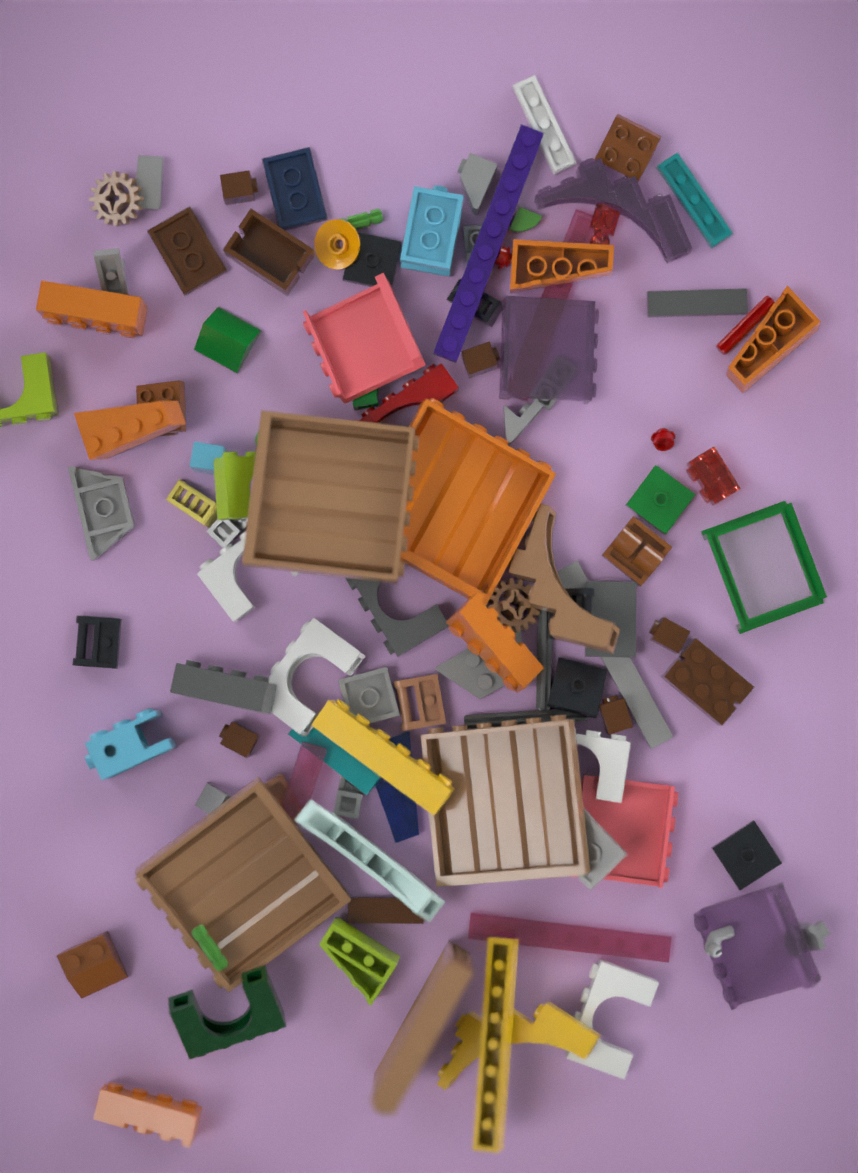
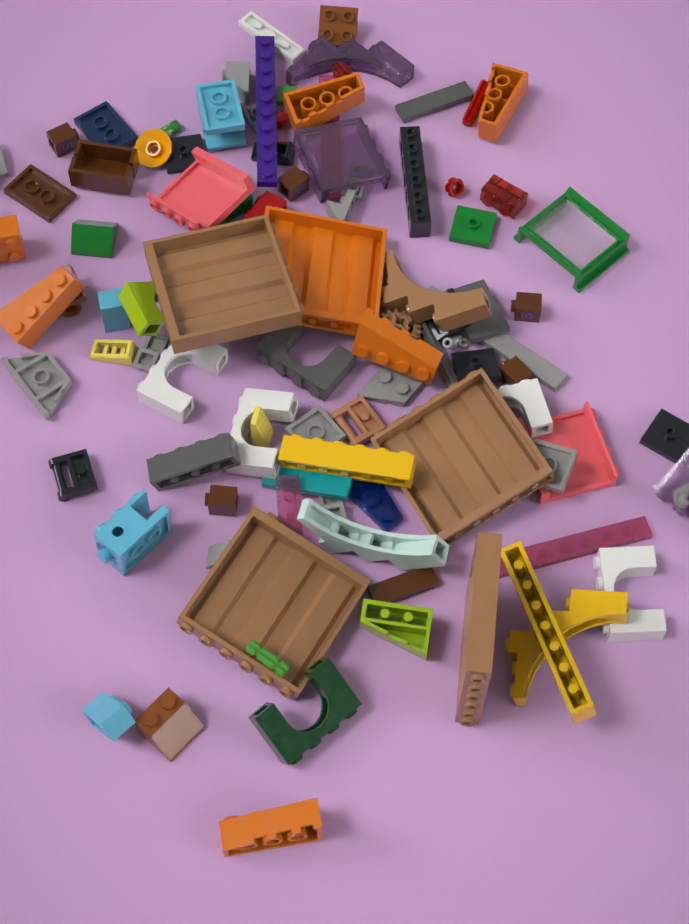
camera: 25 degrees left, 25 degrees down
(35, 937) = (109, 715): none -> medium azure brick
(312, 674) = (260, 429): none -> light yellow slope
(562, 647) = (456, 341): none -> light grey arm
(619, 414) = (414, 182): none -> black brick
(637, 551) = (472, 262): dark orange plate -> none
(694, 200) = (407, 48): teal tile -> none
(707, 682) = (572, 326): reddish brown piece -> none

